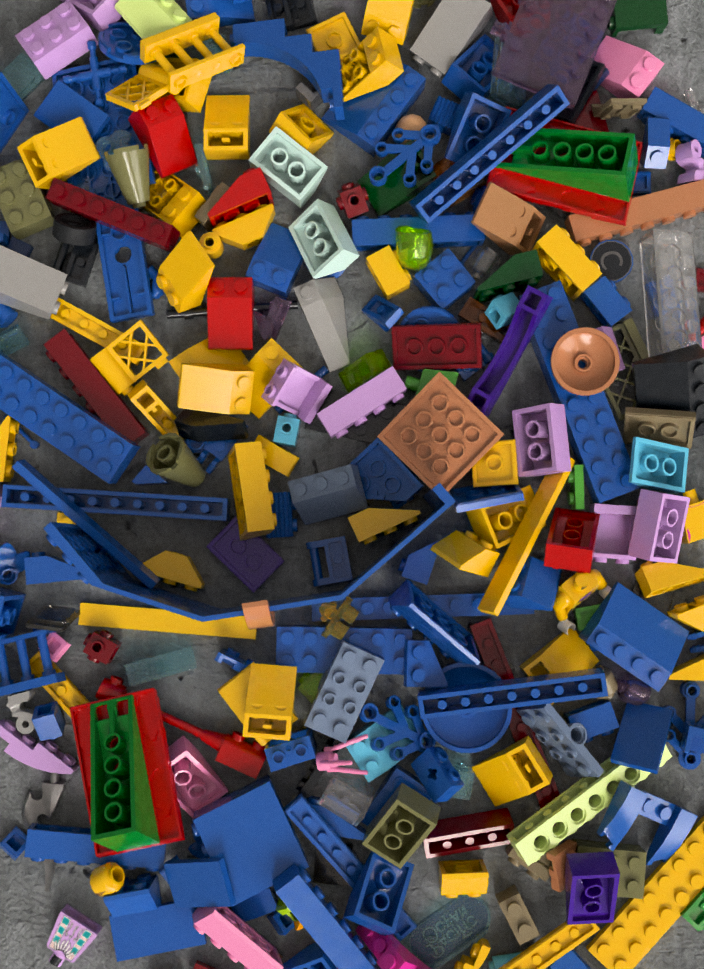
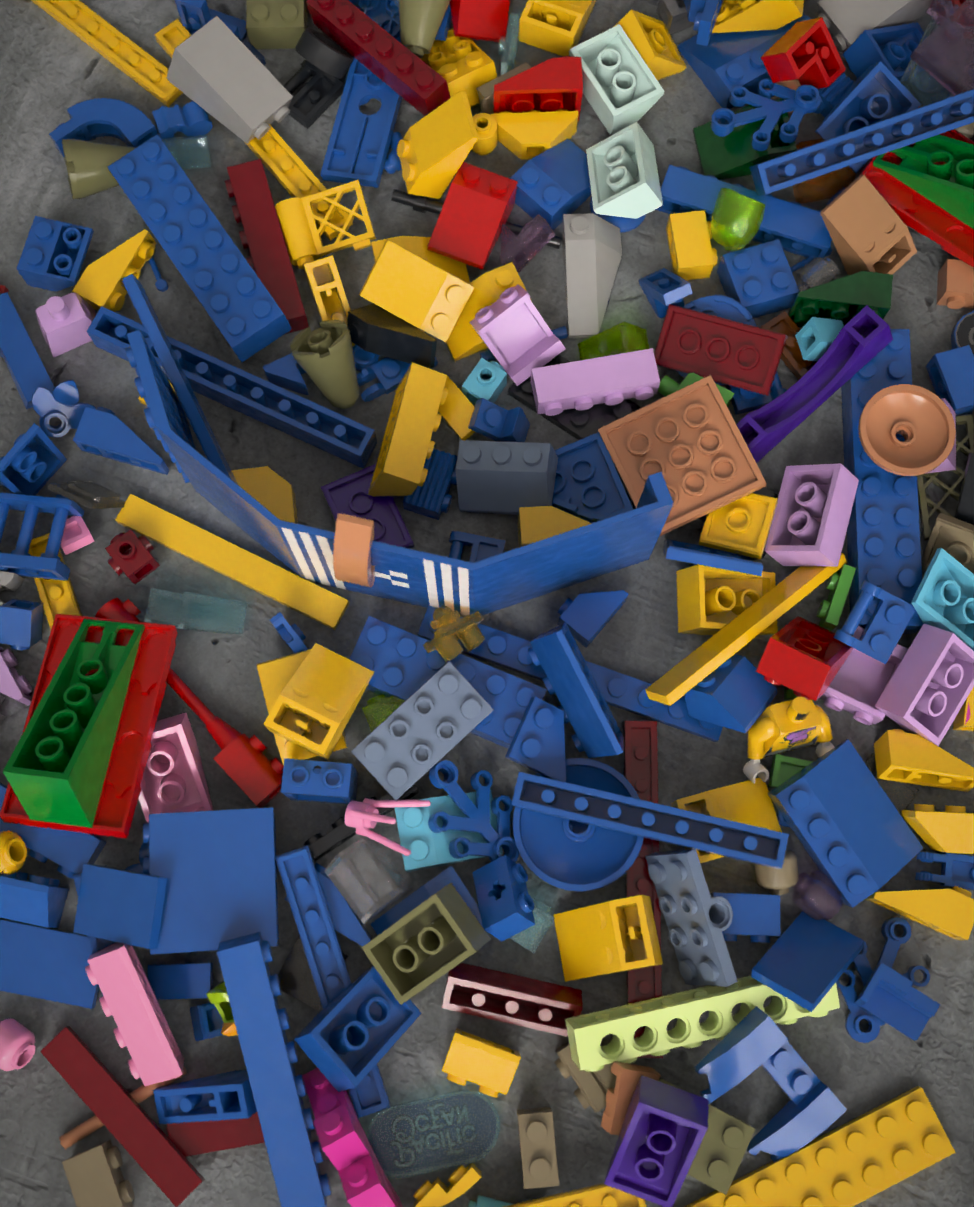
camera: 20 degrees right, 10 degrees down
(308, 456) = (498, 422): none -> blue slope
(357, 205) = (671, 151): dark red brick -> none
(417, 103) = (805, 54): none -> red brick
(467, 552) = (660, 618): yellow slope -> none
(566, 262) = (925, 309): yellow brick -> none
(615, 502) = (883, 627): none -> blue plate

